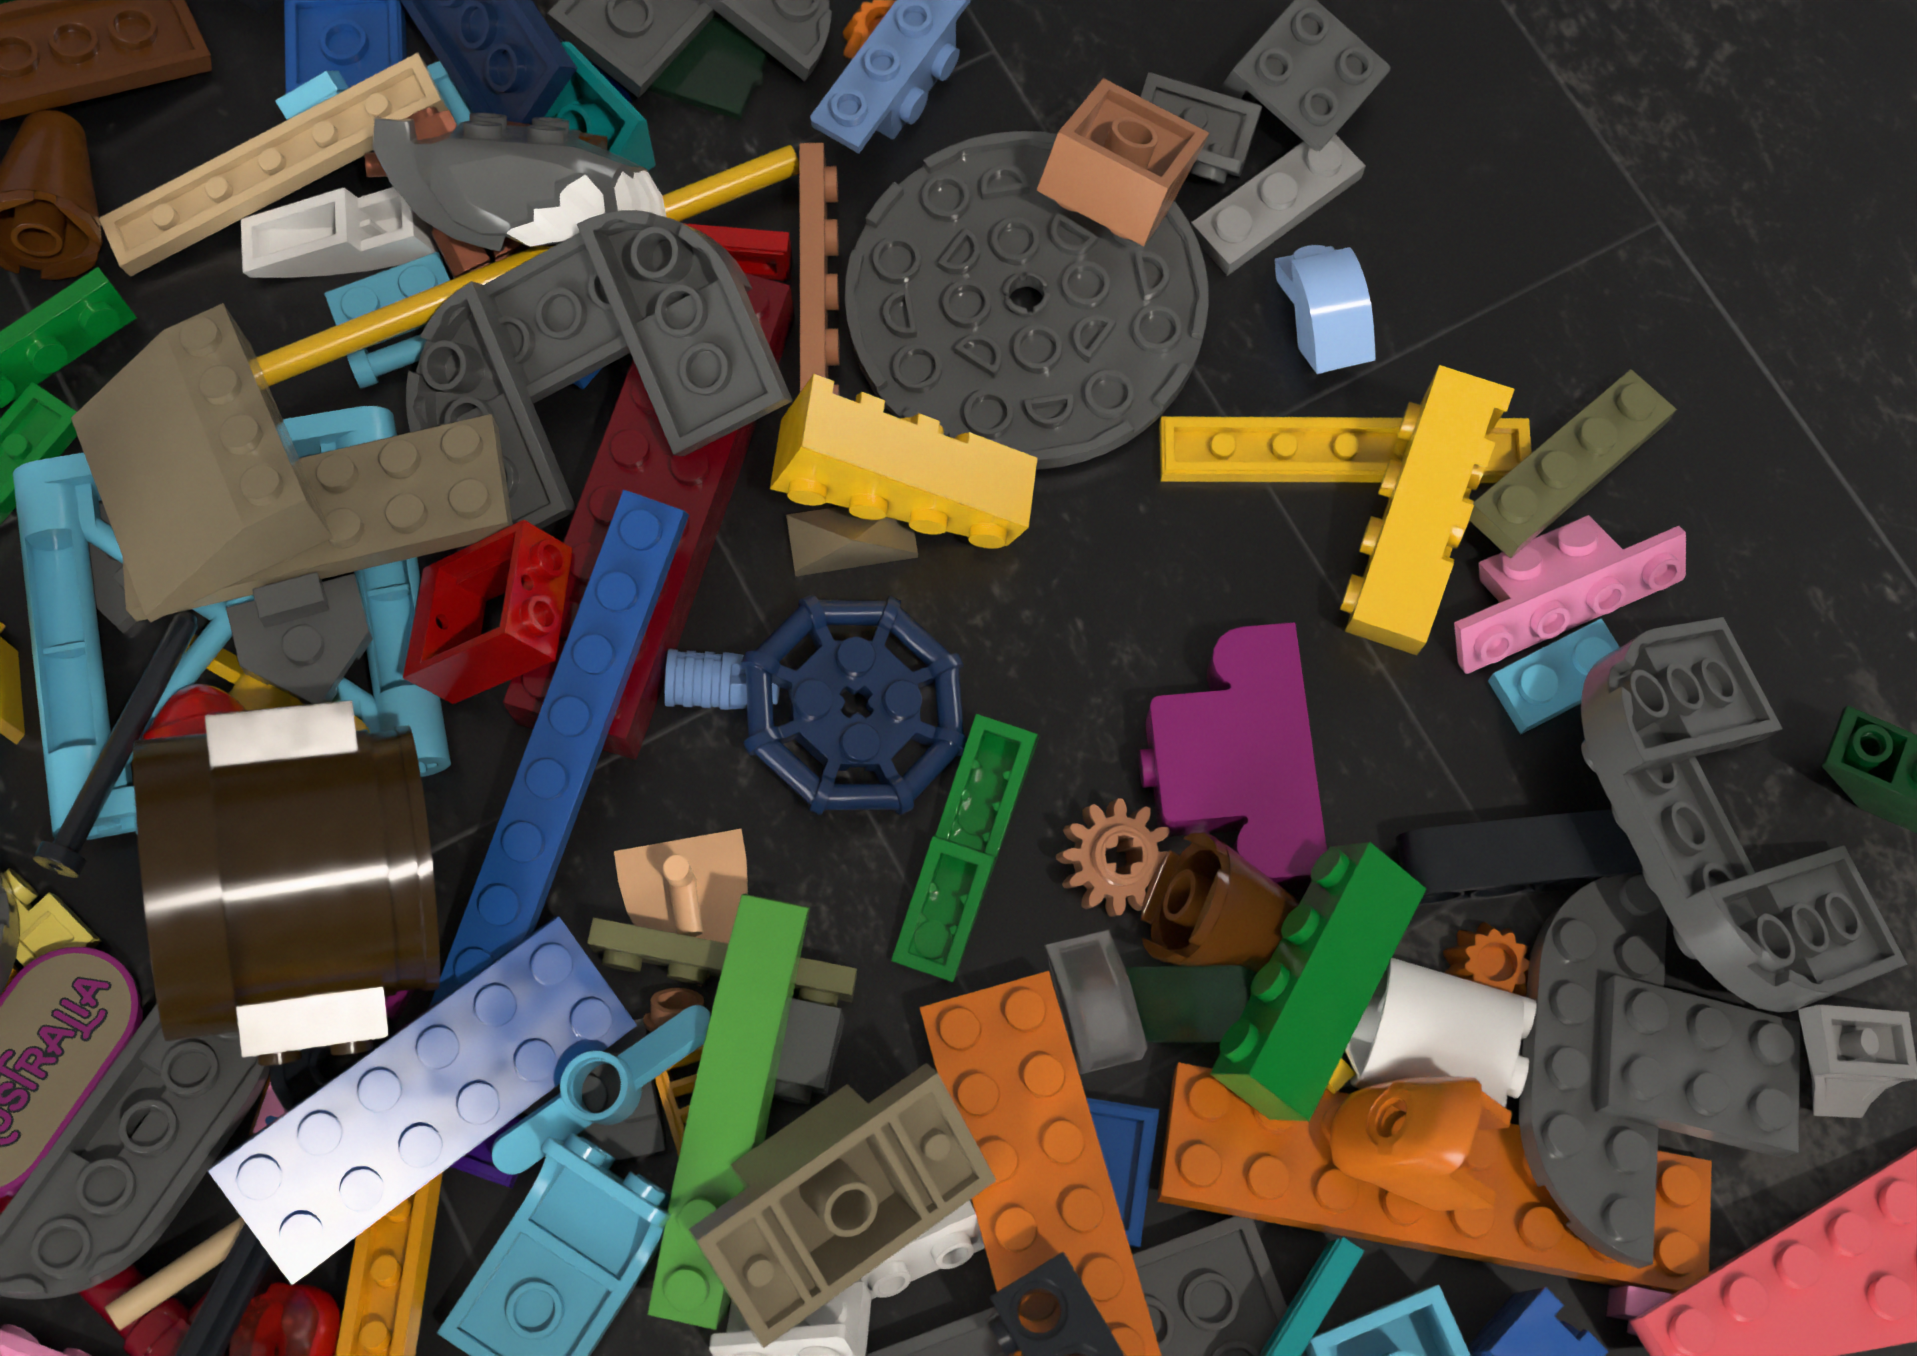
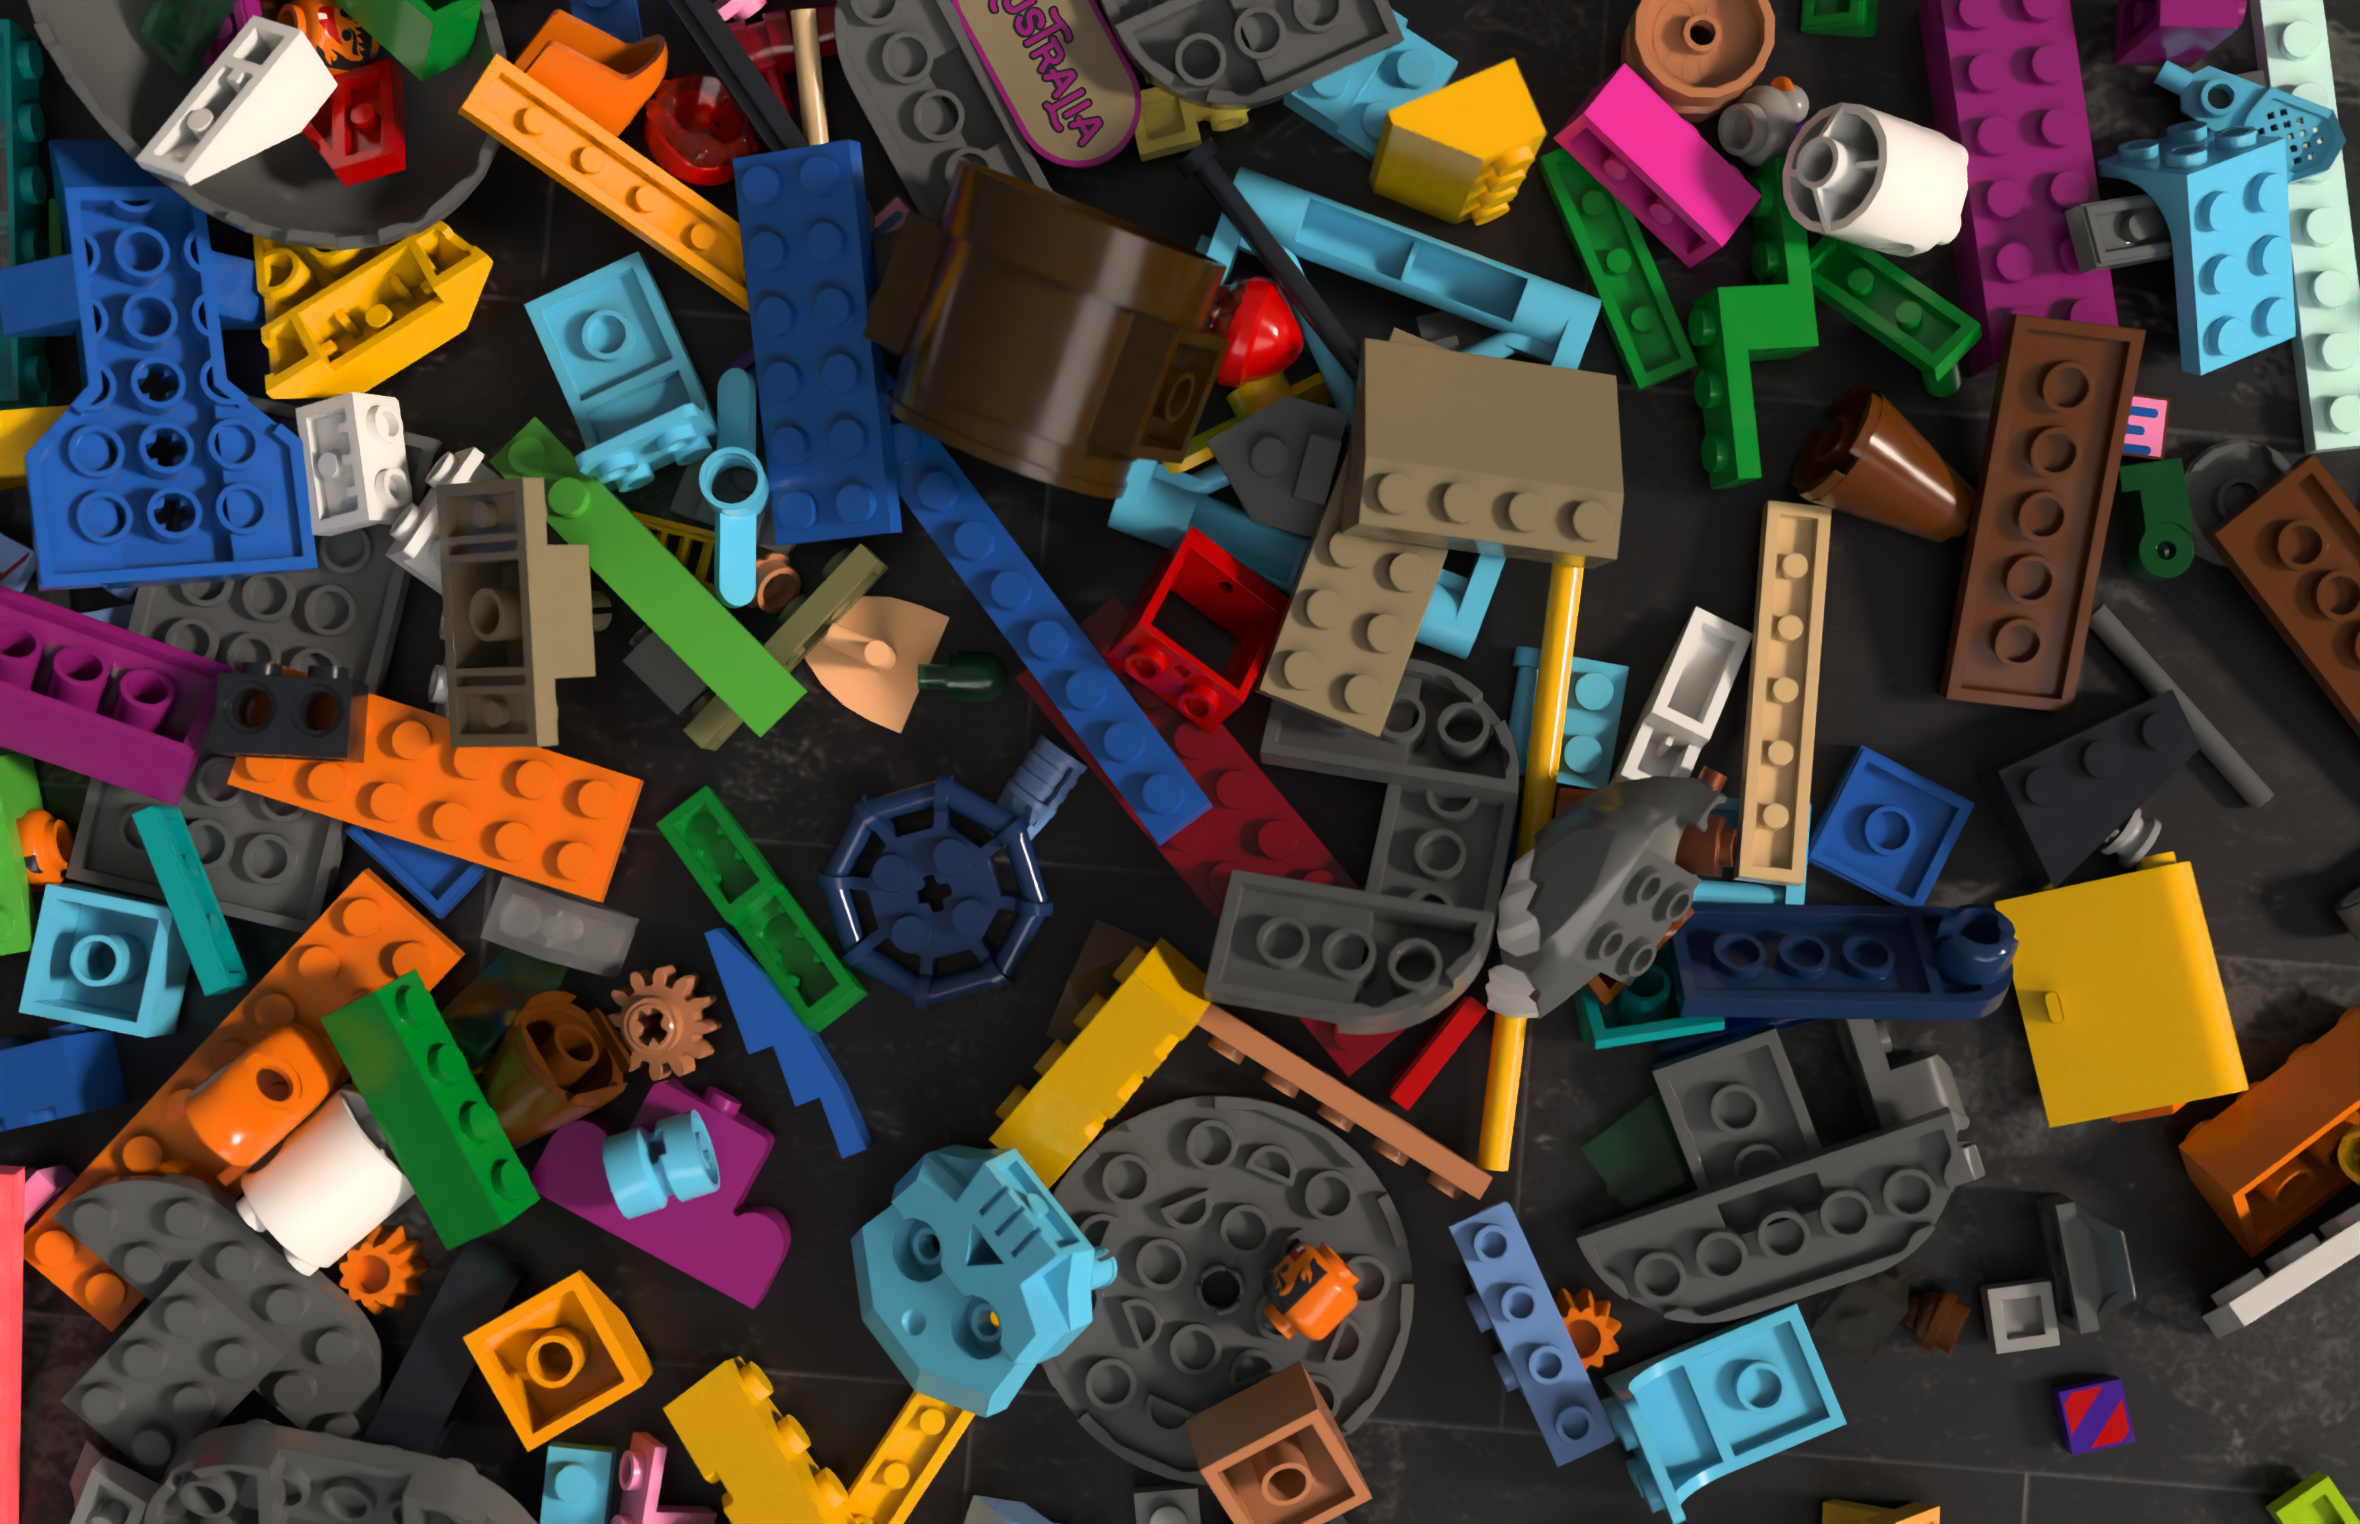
camera: 120 degrees right, 15 degrees up
(312, 93) = (1834, 766): medium azure tile -> none
(656, 801) = (966, 676): none -> clear green cylinder
(978, 215) = (1309, 1292): none -> orange head
(1054, 764) = (769, 1021): none -> blue slope
(1192, 480) = (1000, 1252): none -> medium azure brick
(1247, 770) = (655, 1165): none -> medium azure wheel
(1450, 747) = (559, 1358): none -> light orange slope

